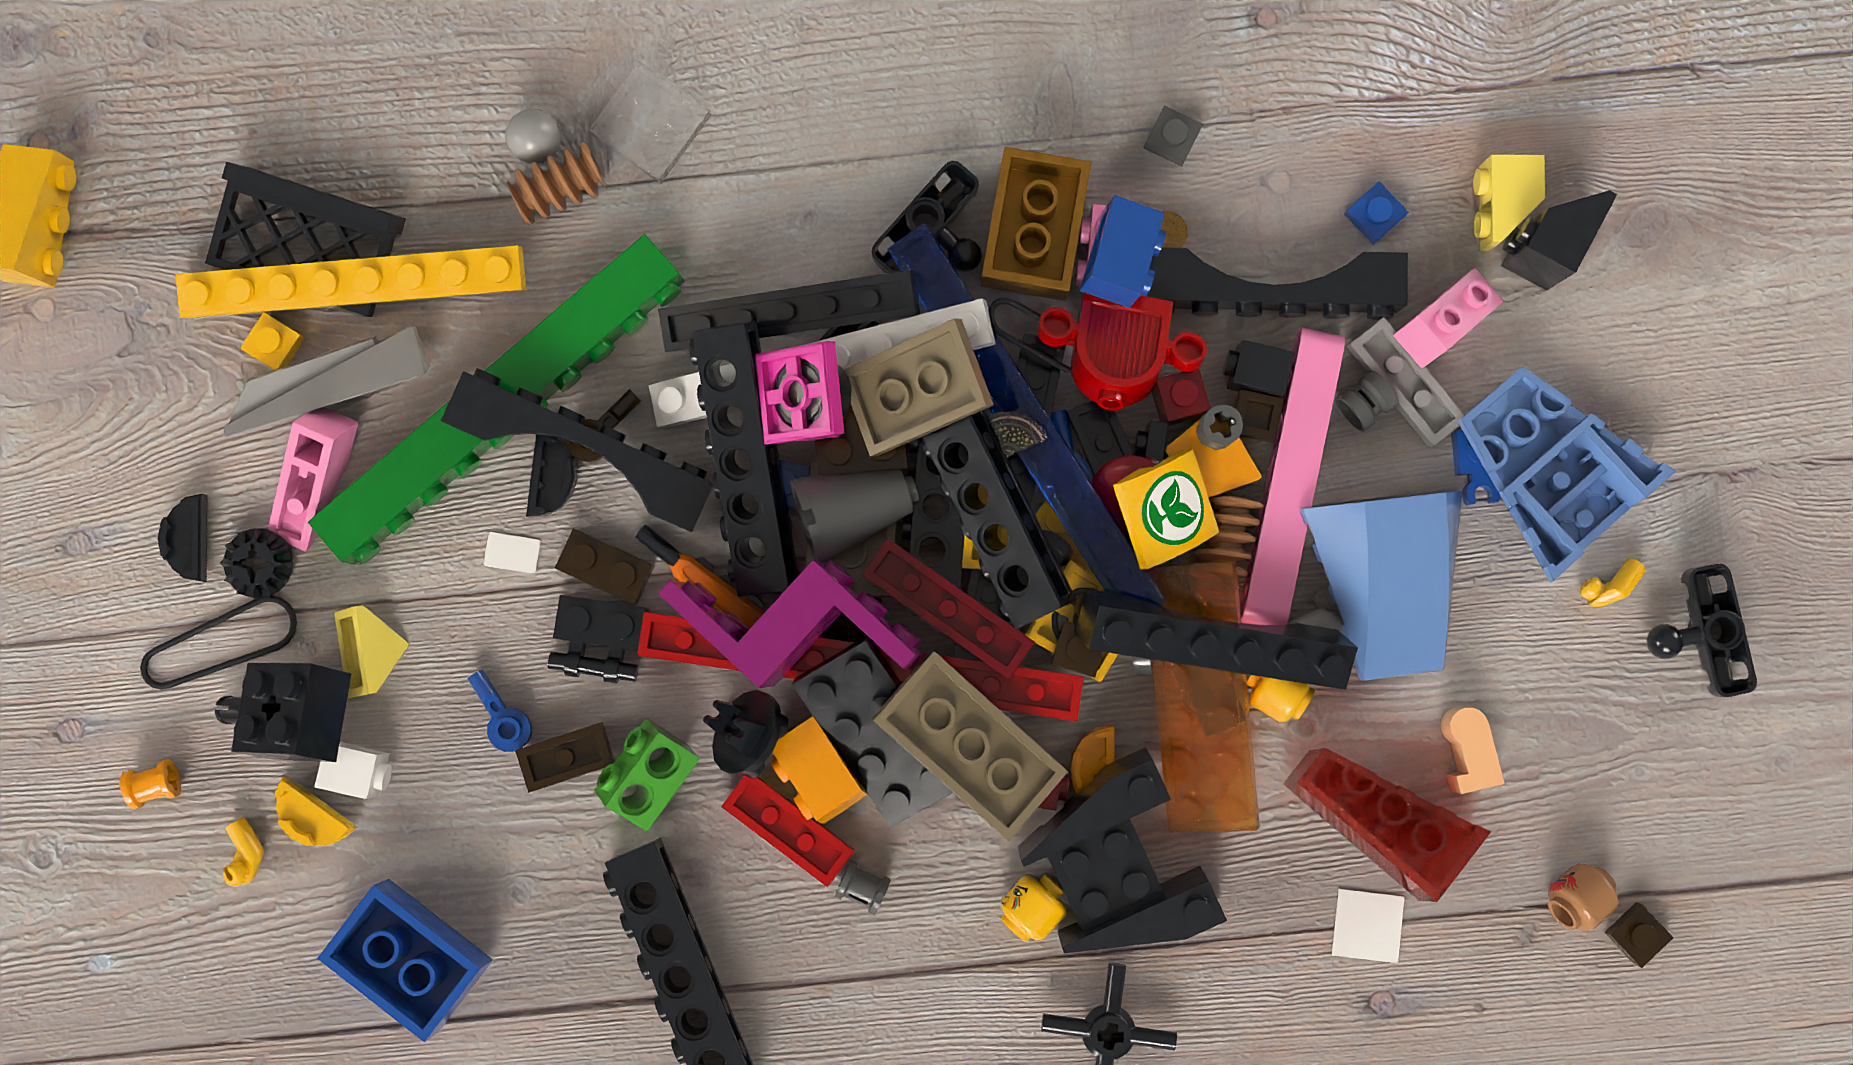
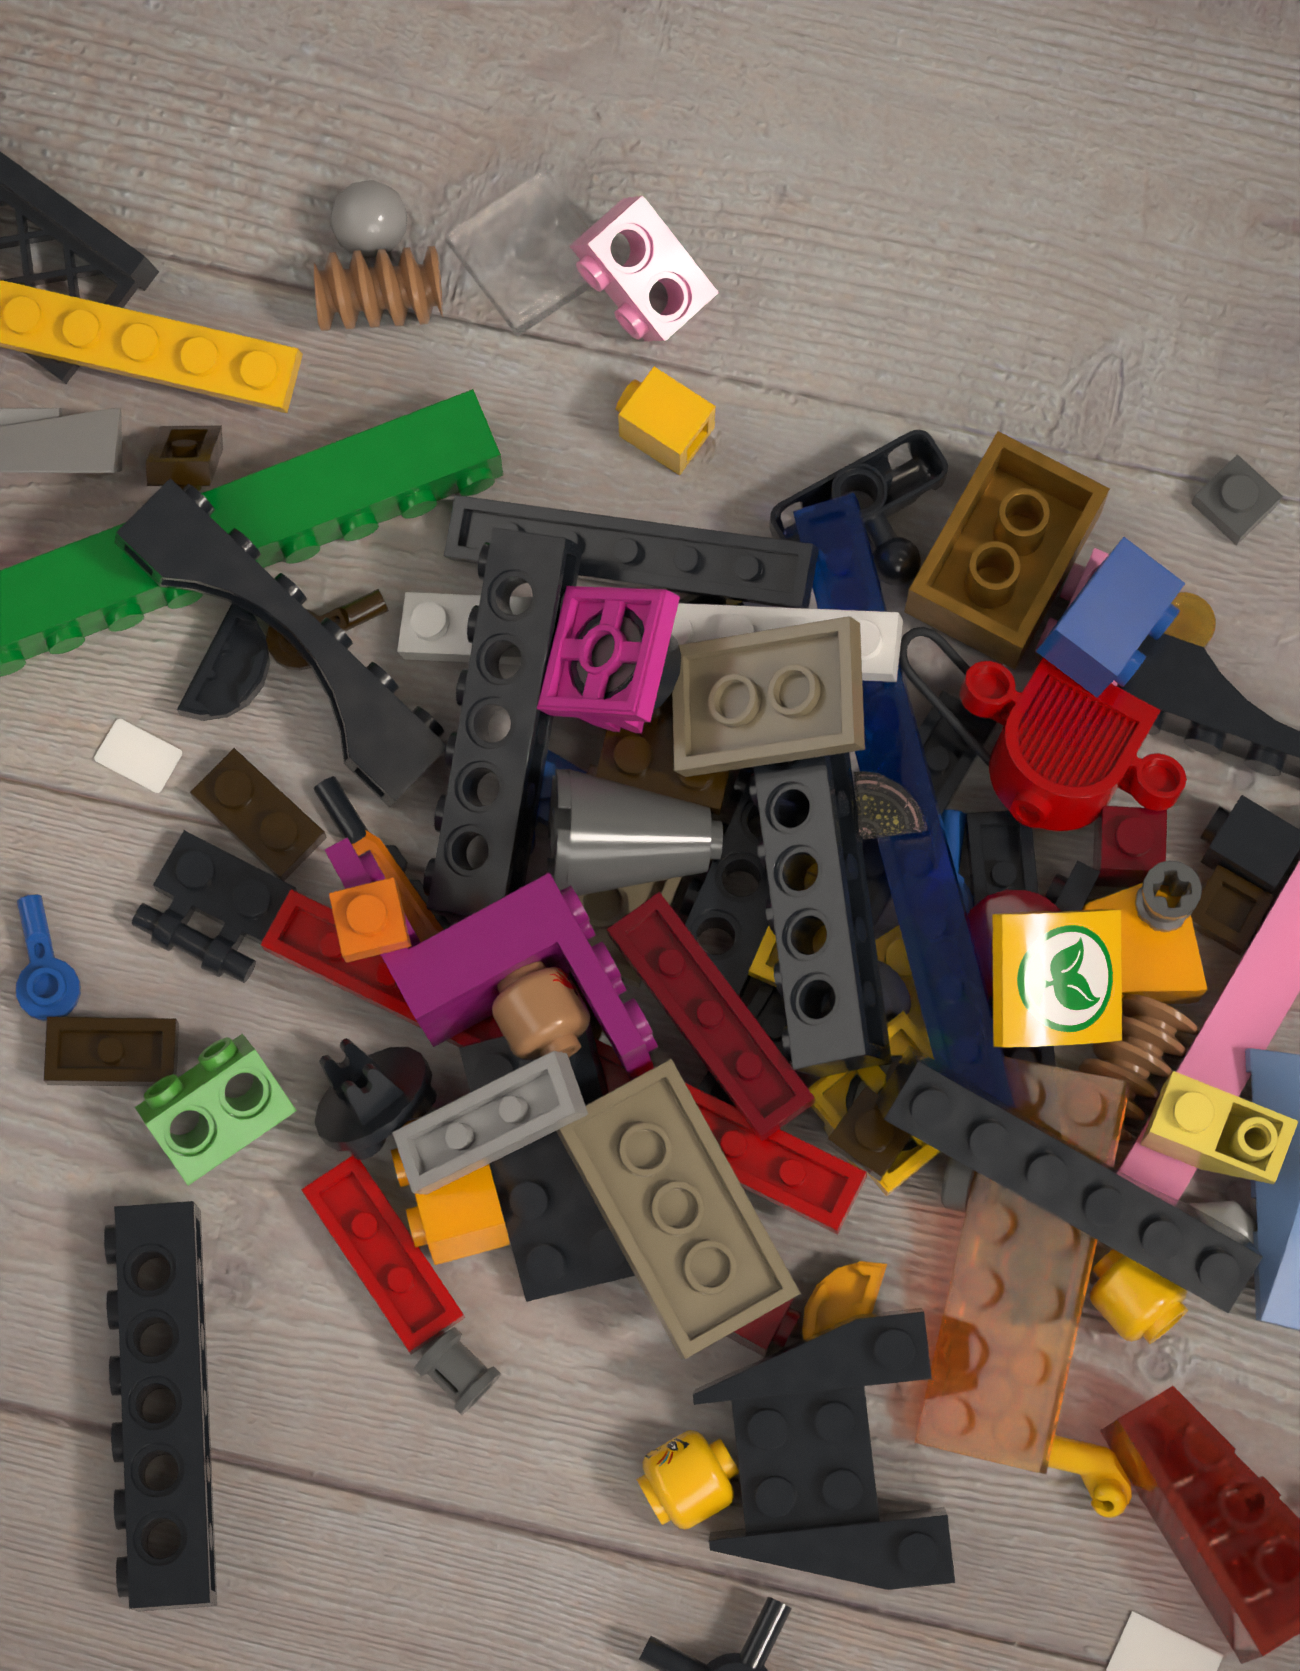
camera: 15 degrees right, 10 degrees down
(468, 345) = (184, 455): none -> dark brown plate
(705, 632) = (369, 919): none -> orange plate
(733, 102) = (652, 258): none -> brick
(778, 209) = (664, 419): none -> yellow brick
(830, 733) = (490, 1123): none -> light grey plate
(838, 651) = (540, 1011): none -> medium nougat head
(1291, 810) = (1099, 1471): none -> yellow arm
(1302, 573) = (1218, 1130): none -> light yellow slope

